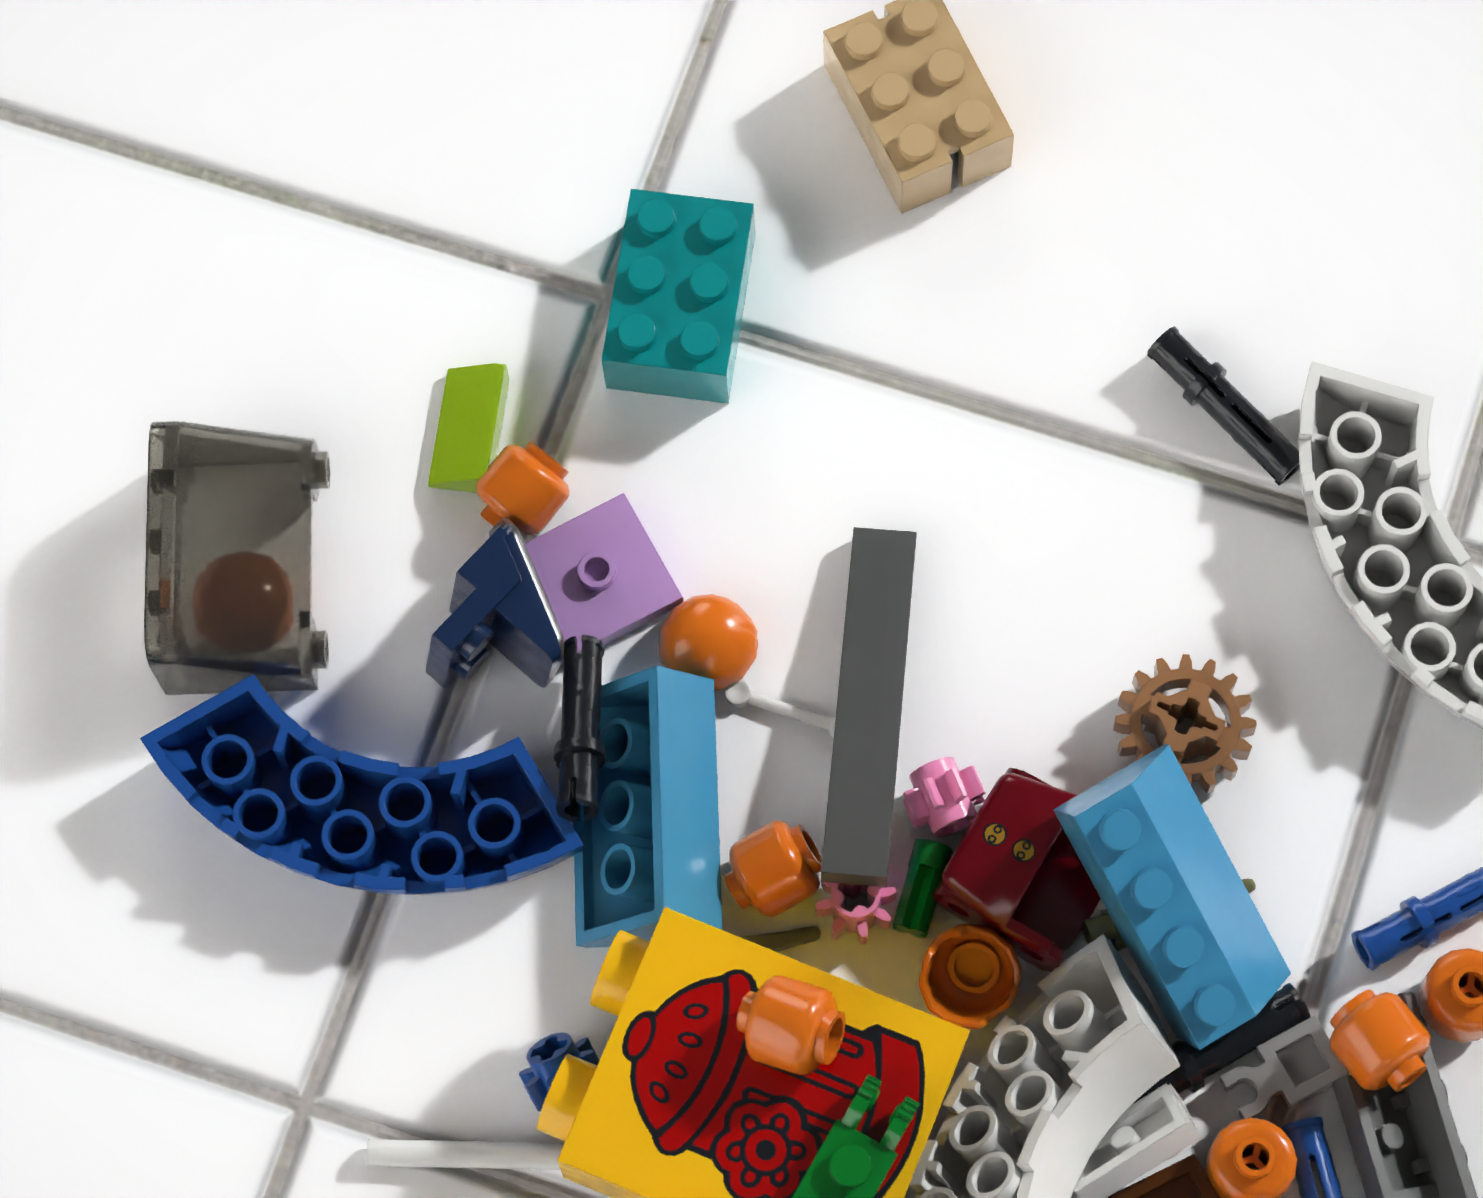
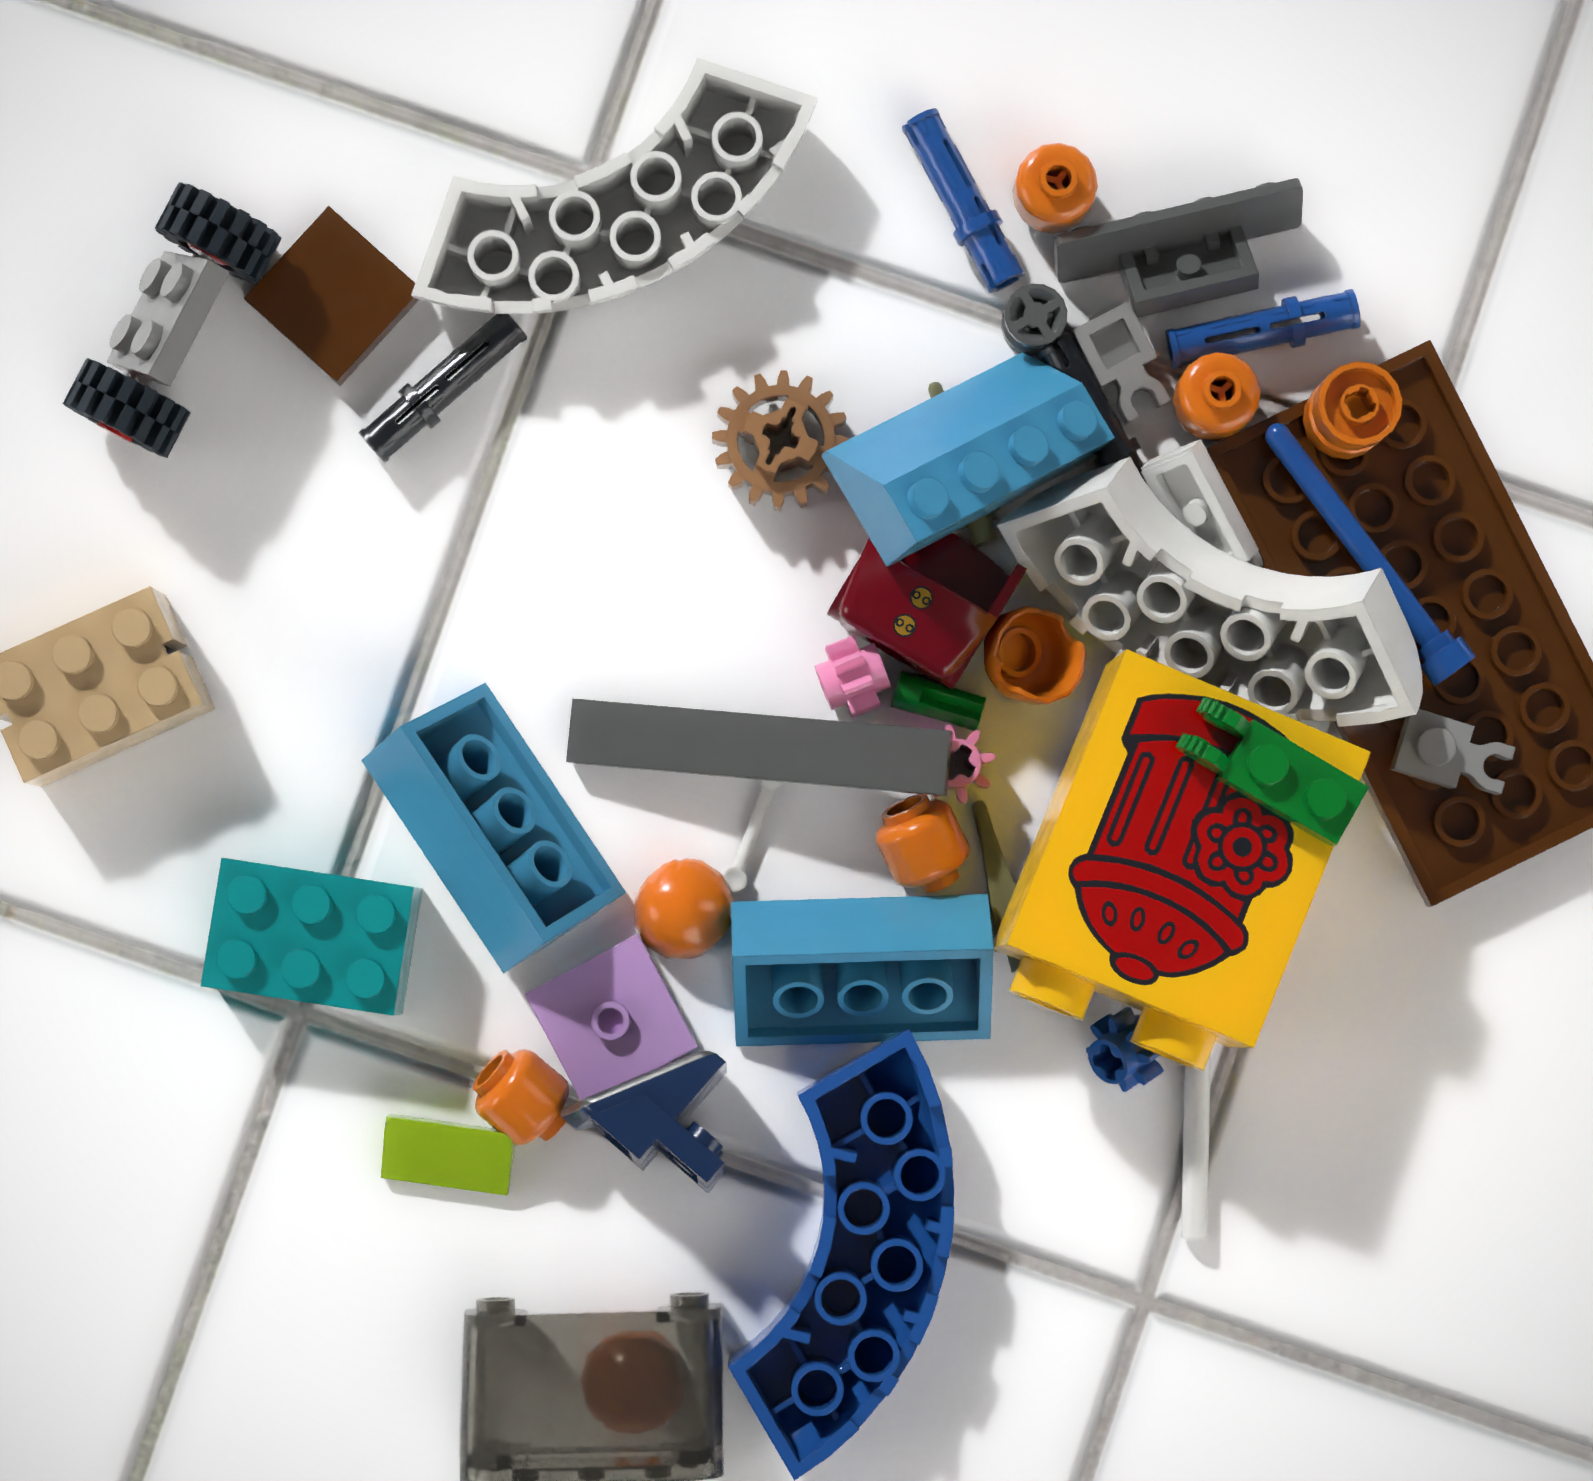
camera: 100 degrees left, 15 degrees up
(580, 750) = (808, 1034): black pin -> none
(789, 460) = (493, 826): none -> dark azure slope
(791, 1025) = (1134, 819): orange head -> none
(1191, 118) = (168, 317): none -> plate
(1311, 304) = (333, 295): none -> reddish brown tile
(1333, 969) = (1041, 309): none -> dark grey wheel
(1379, 1041) = (1106, 268): orange head -> none

